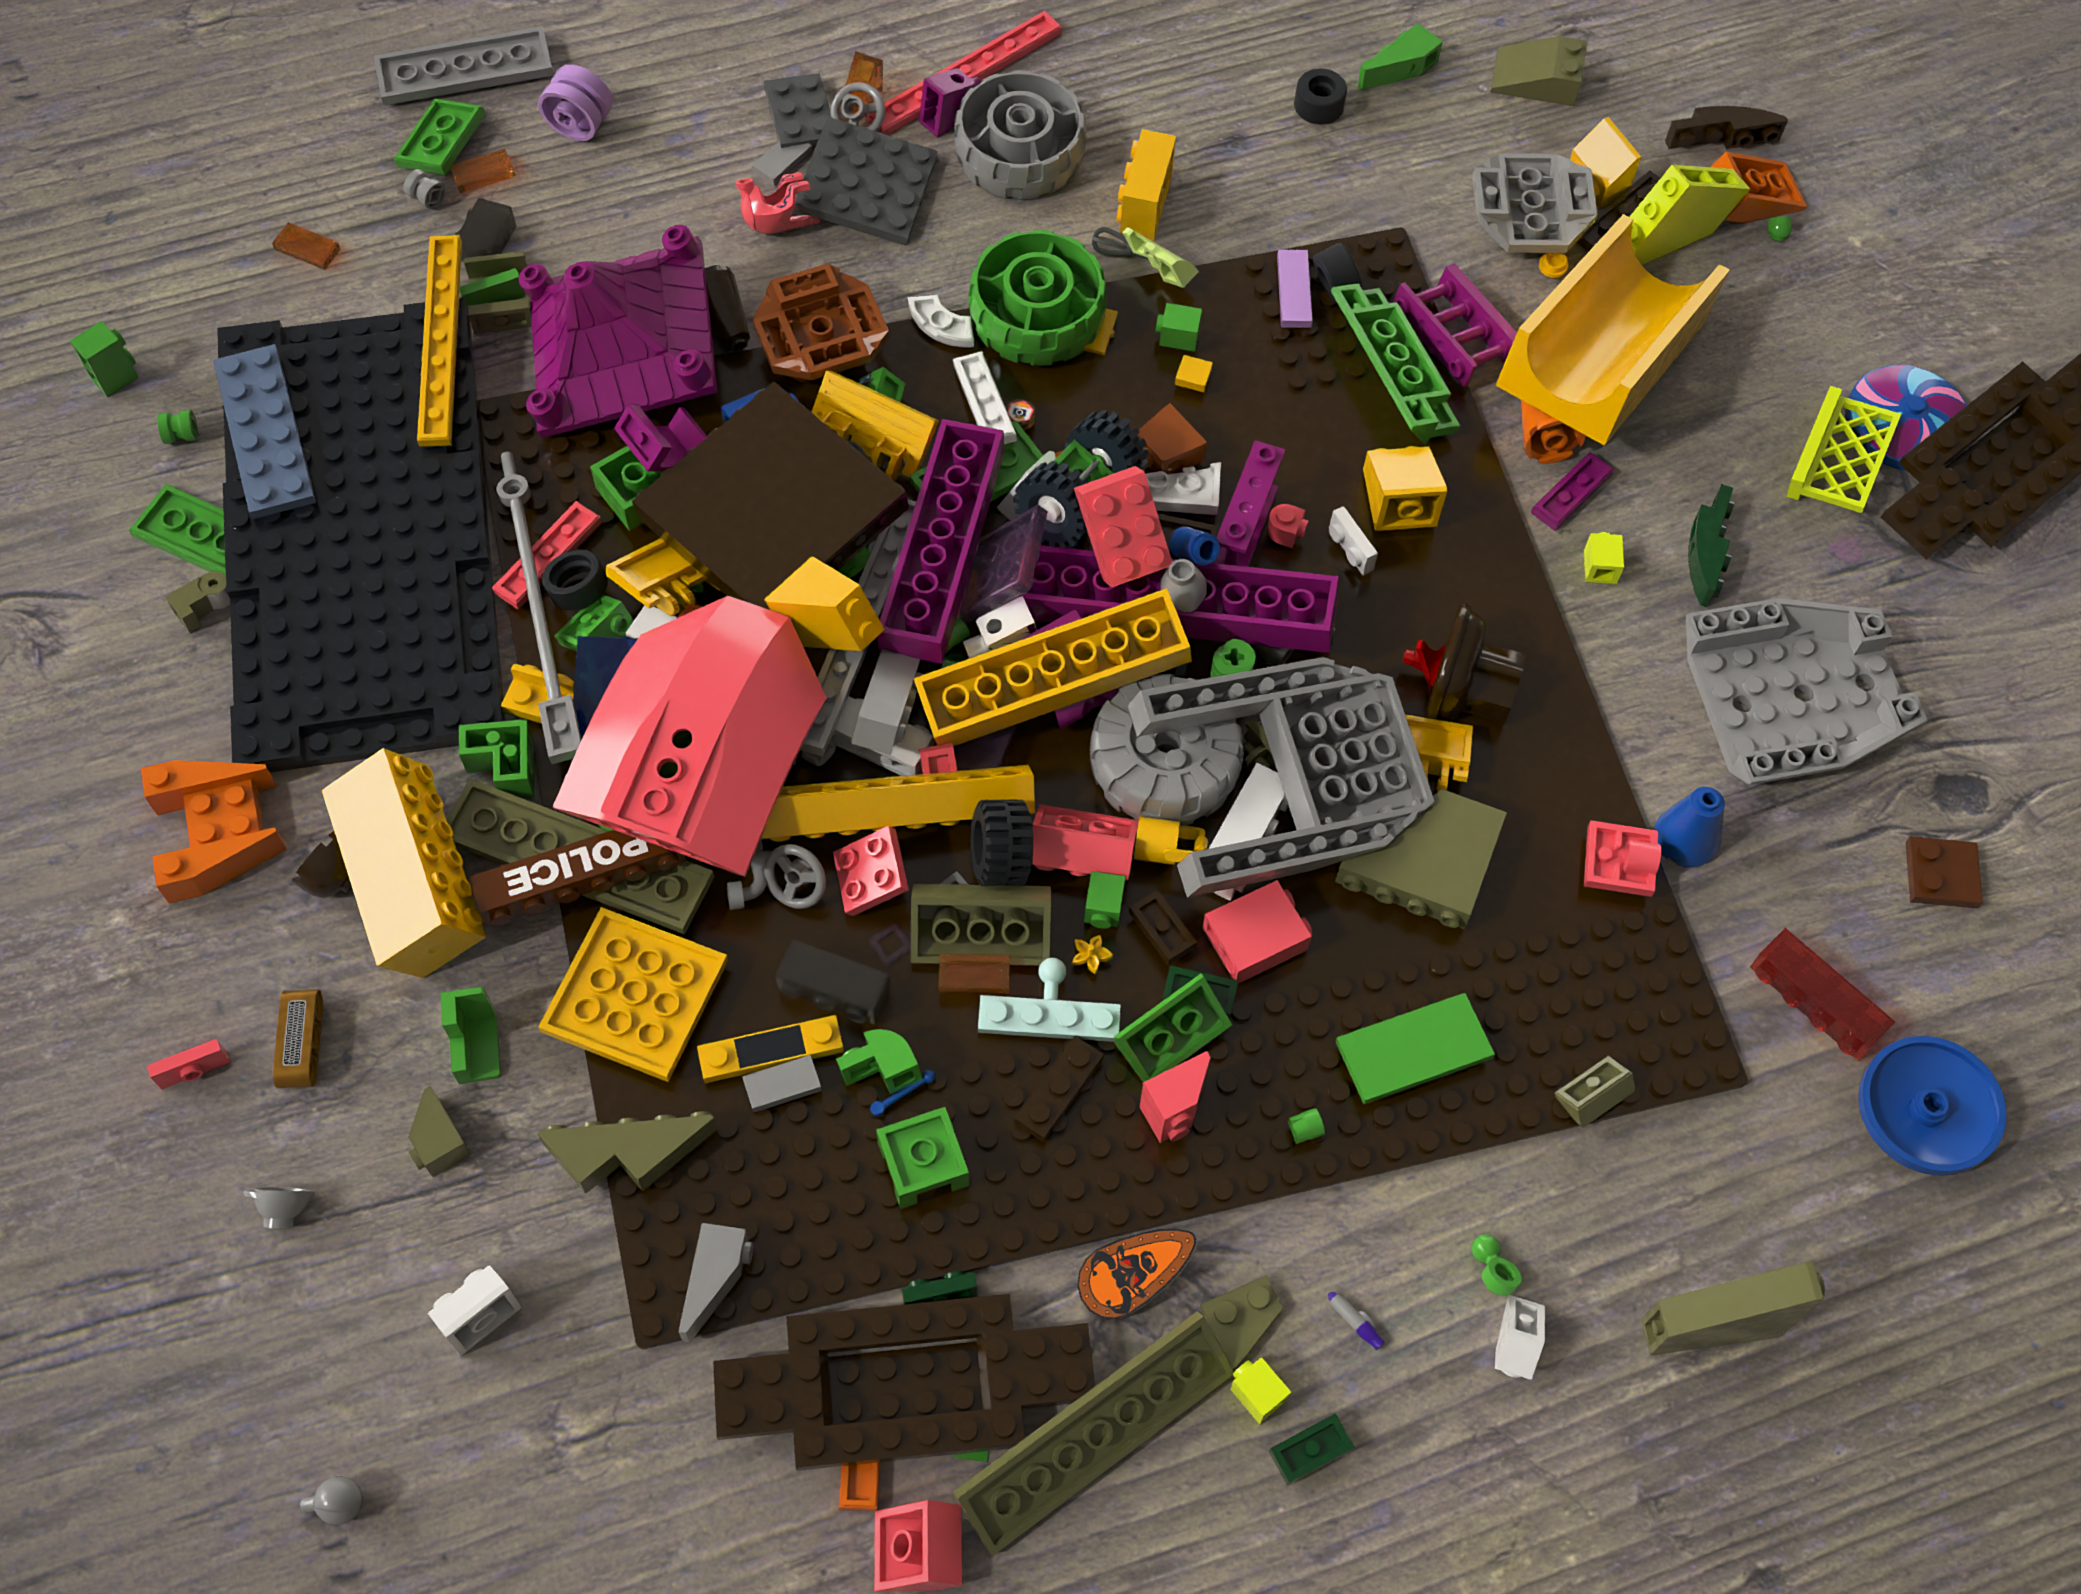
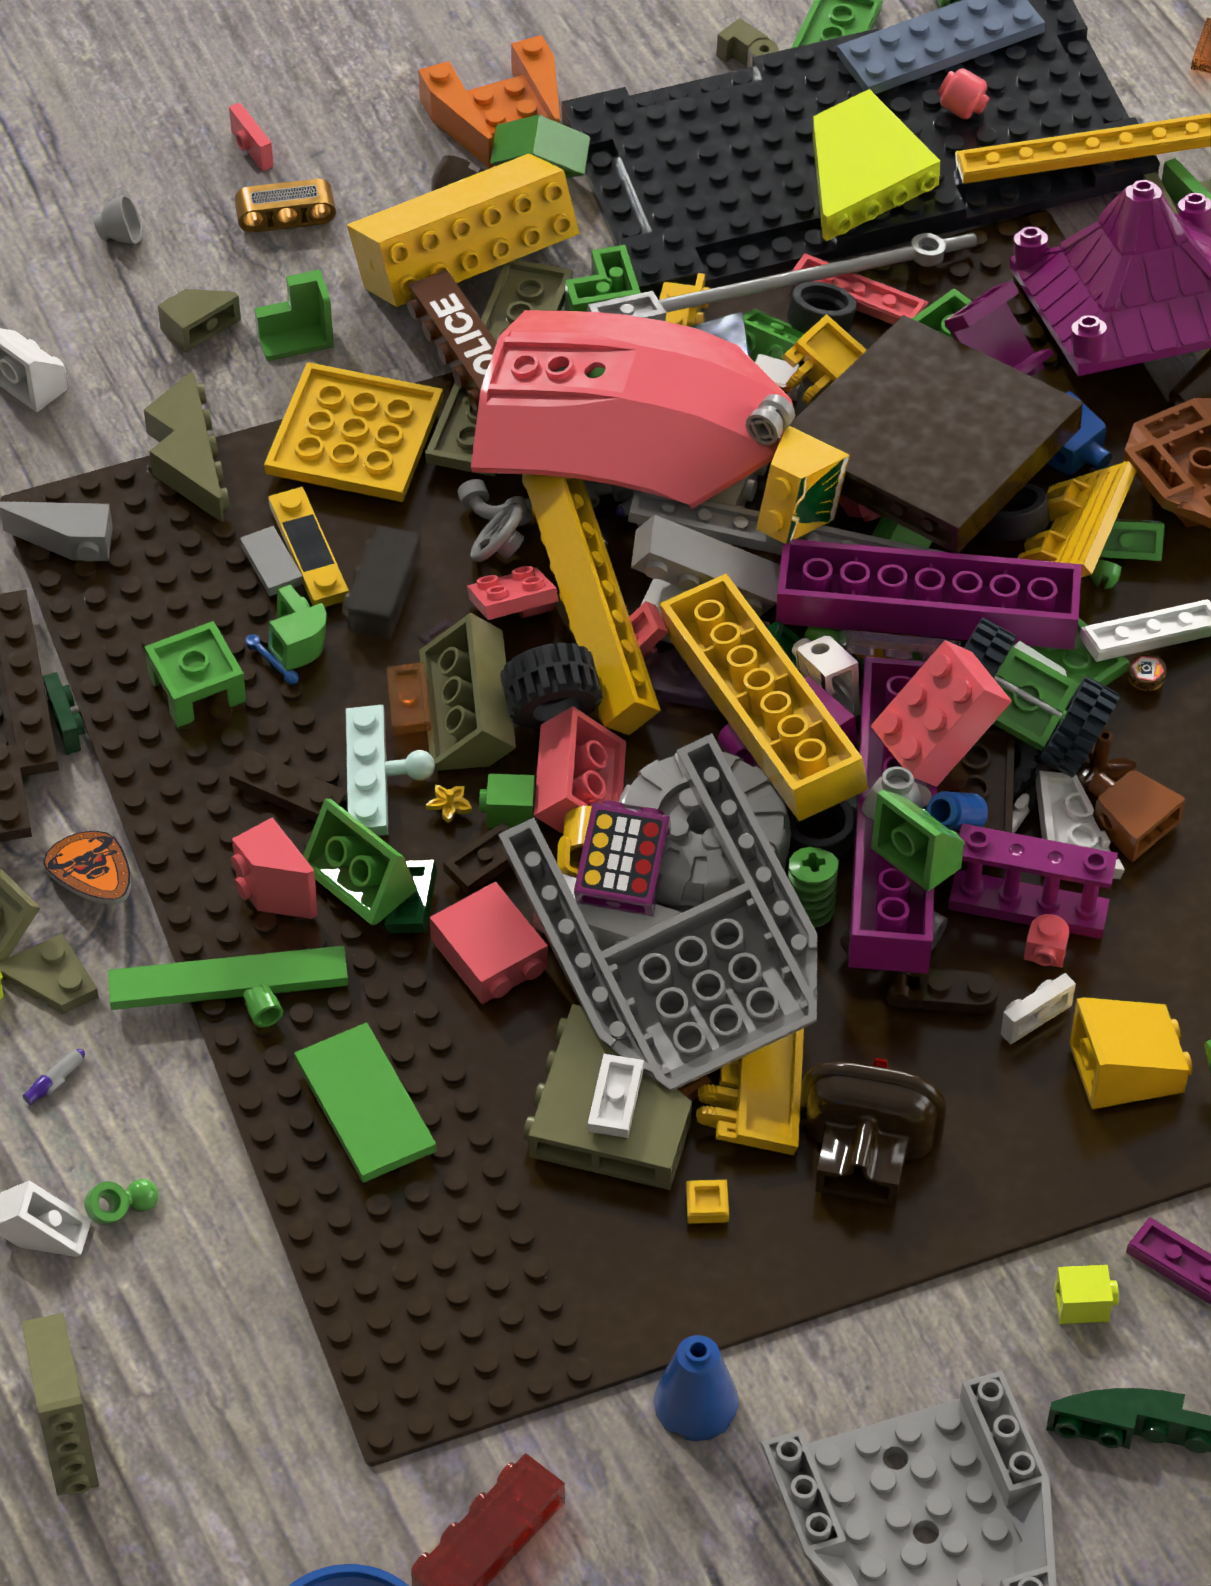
camera: 85 degrees right, 10 degrees down
(297, 790) = (542, 139): none -> bright green panel
(349, 420) = (963, 93): none -> coral head
(414, 512) = (866, 163): none -> neon yellow slope
(764, 605) = (770, 419): none -> light grey wheel
(1214, 796) = (622, 858): none -> panel
(1246, 567) = (915, 841): none -> bright green slope
(1270, 1158) = (226, 977): none -> bright green tile
(1445, 839) = (615, 1095): none -> white plate
(1517, 799) = (707, 1201): none -> yellow tile
(1596, 1091) = (333, 1290): olive slope -> none
(1621, 858) = (638, 1308): coral plate -> none

